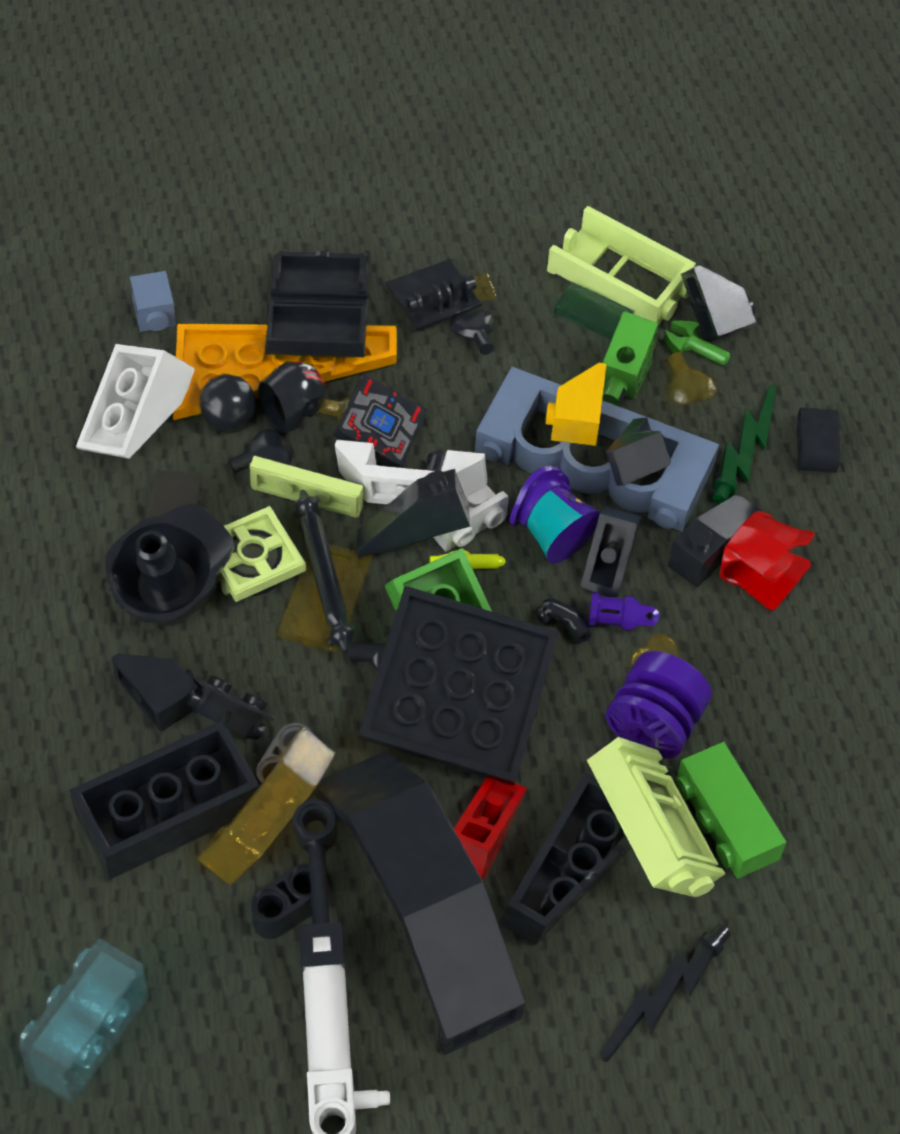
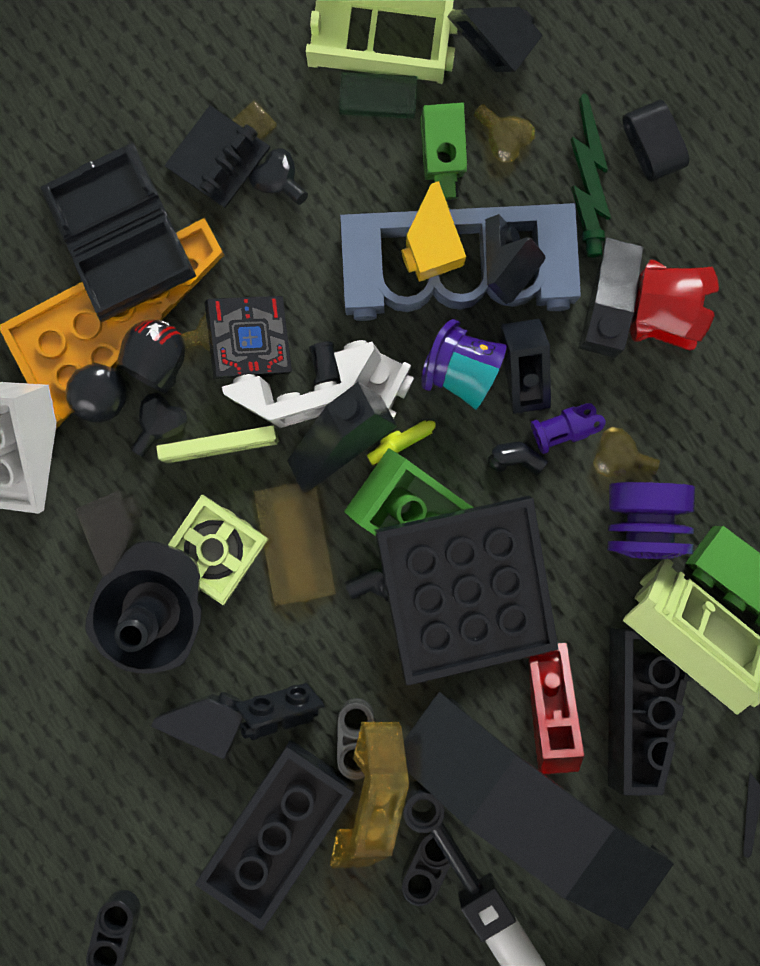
camera: 25 degrees left, 30 degrees up
(324, 571) = (282, 526): black wheel -> none
(692, 342) = (488, 82): bright green bar -> none

